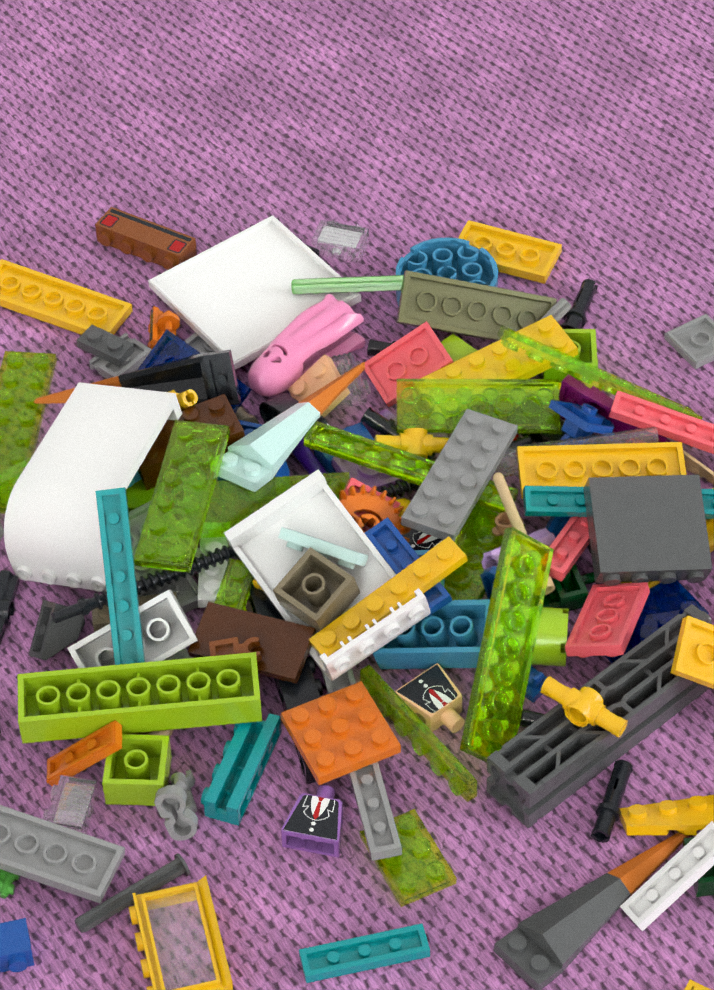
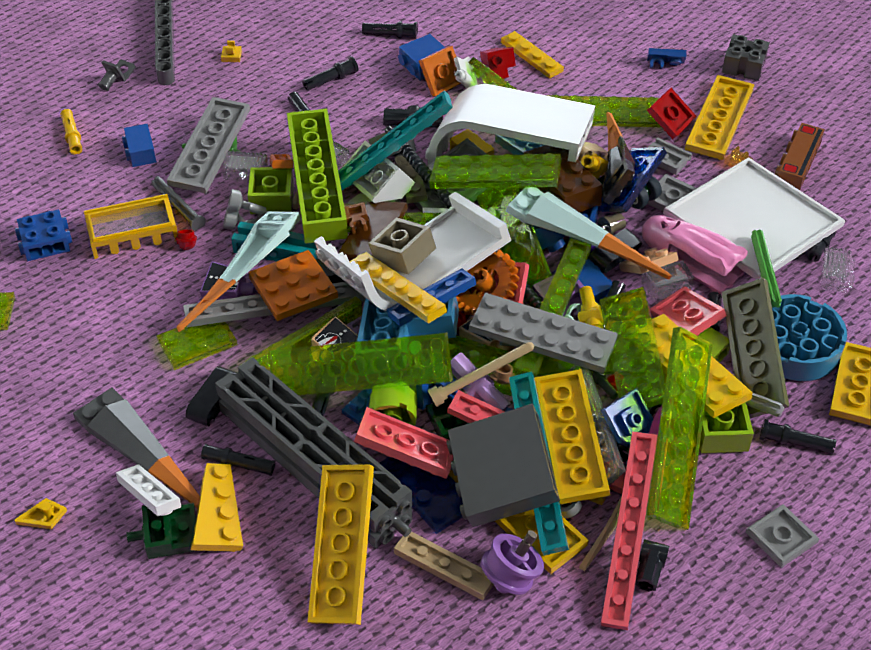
camera: 85 degrees right, 0 degrees up
(46, 340) = (671, 113): none -> red plate
(105, 345) = (673, 140): dark grey plate -> none
(138, 296) = (736, 157): none -> clear yellow tile
(159, 323) = (697, 170): orange hips -> none
(217, 873) = (186, 239): none -> red plate
(262, 758) = (262, 239): none -> light aqua plate
(298, 540) = (443, 244): light aqua plate -> none
(364, 953) = (115, 318): teal plate -> none
(511, 827) = (205, 403): none -> black beam
(583, 706) = (290, 408): yellow pin -> none

